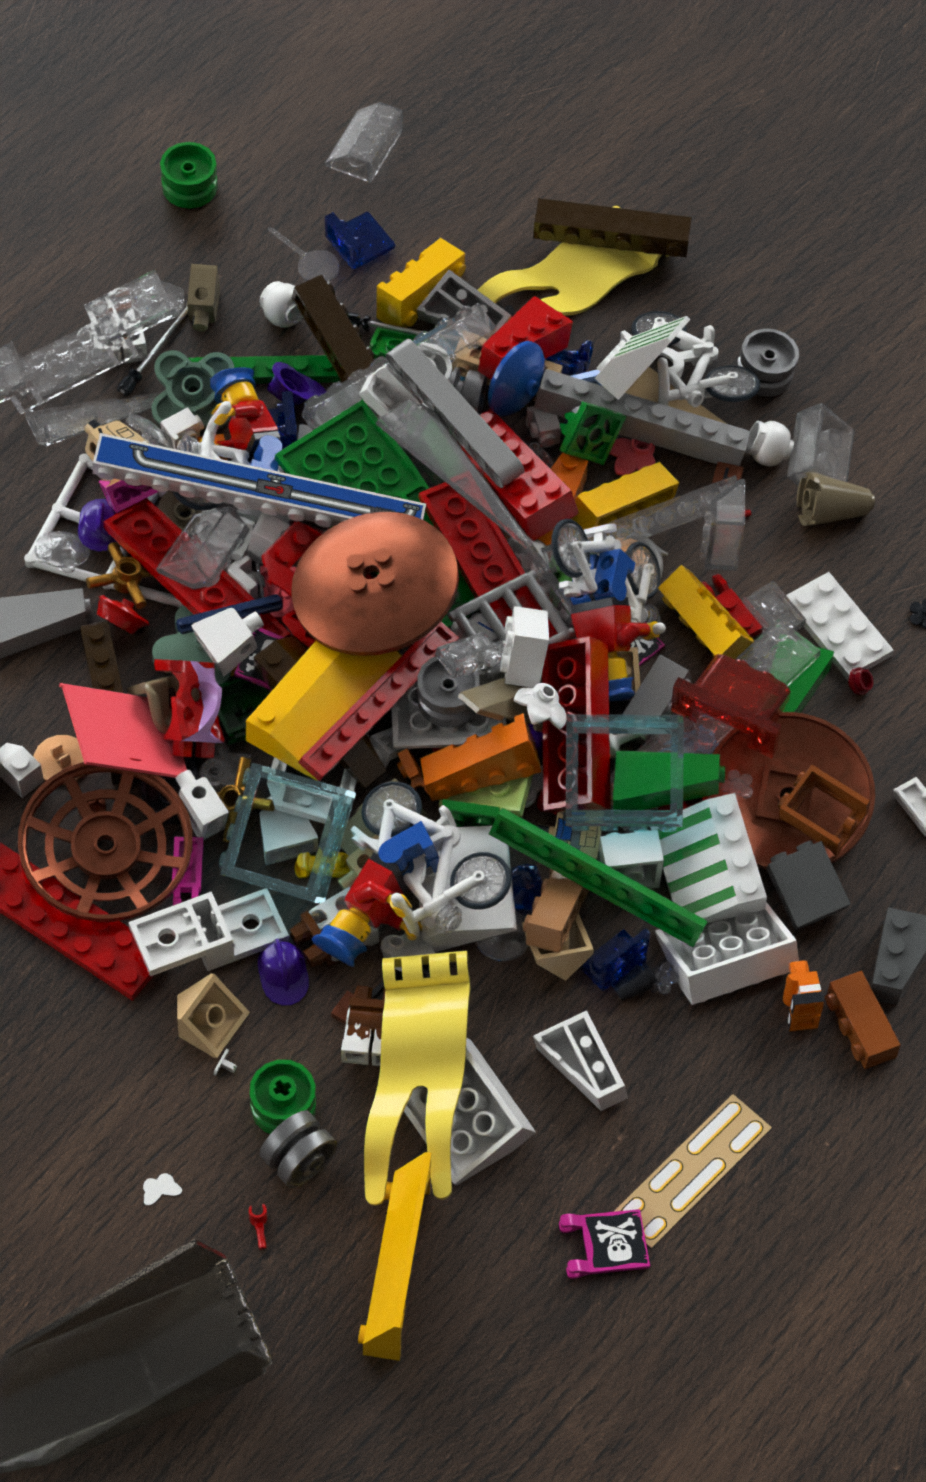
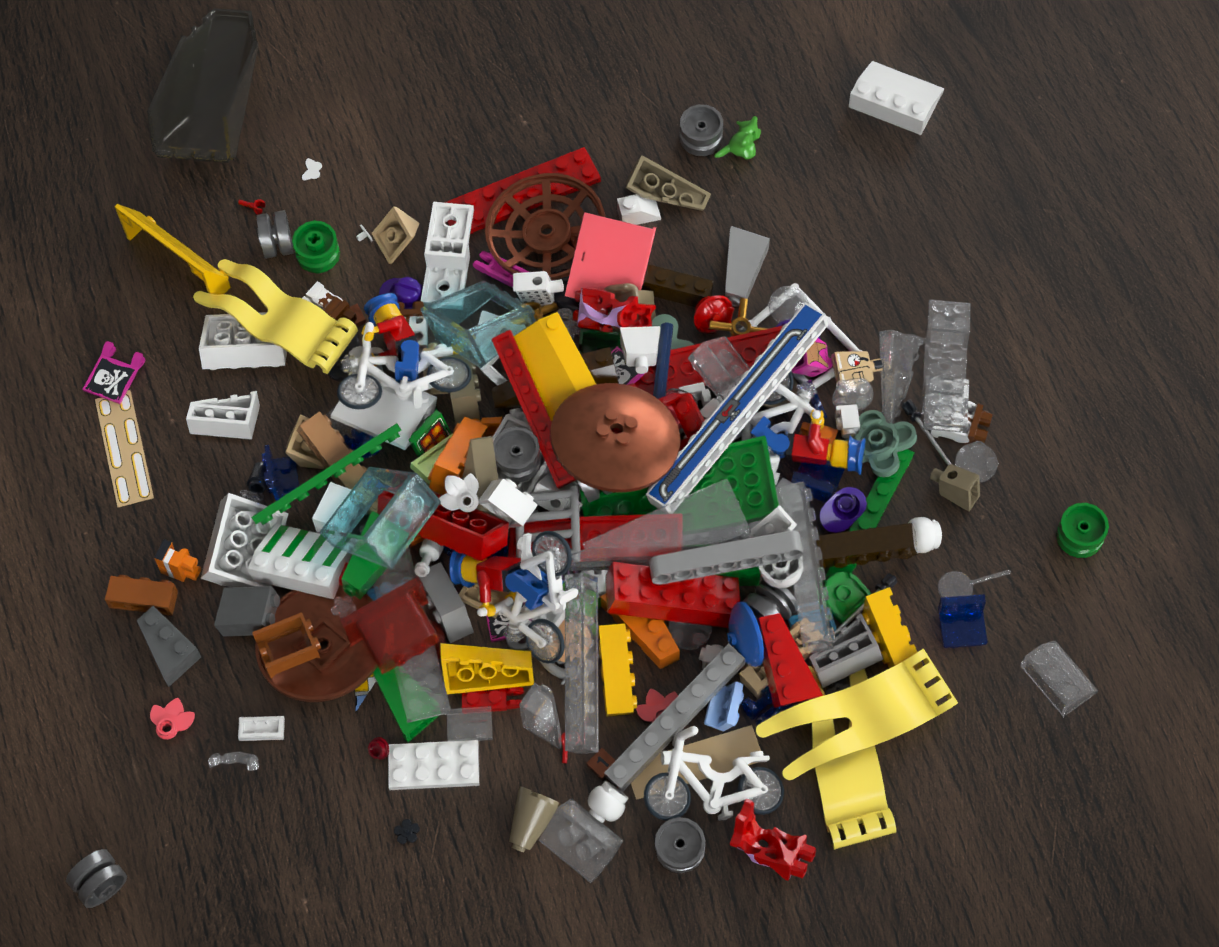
camera: 125 degrees right, 5 degrees up
(470, 654) = (524, 465): clear bracket -> none
(519, 263) = (877, 708): none -> light yellow flag
(589, 430) = (678, 664): green piece -> none
(612, 227) = (865, 798): dark brown brick -> none
(633, 357) = (716, 724): white slope -> none
(709, 271) = (780, 857): none -> red hips

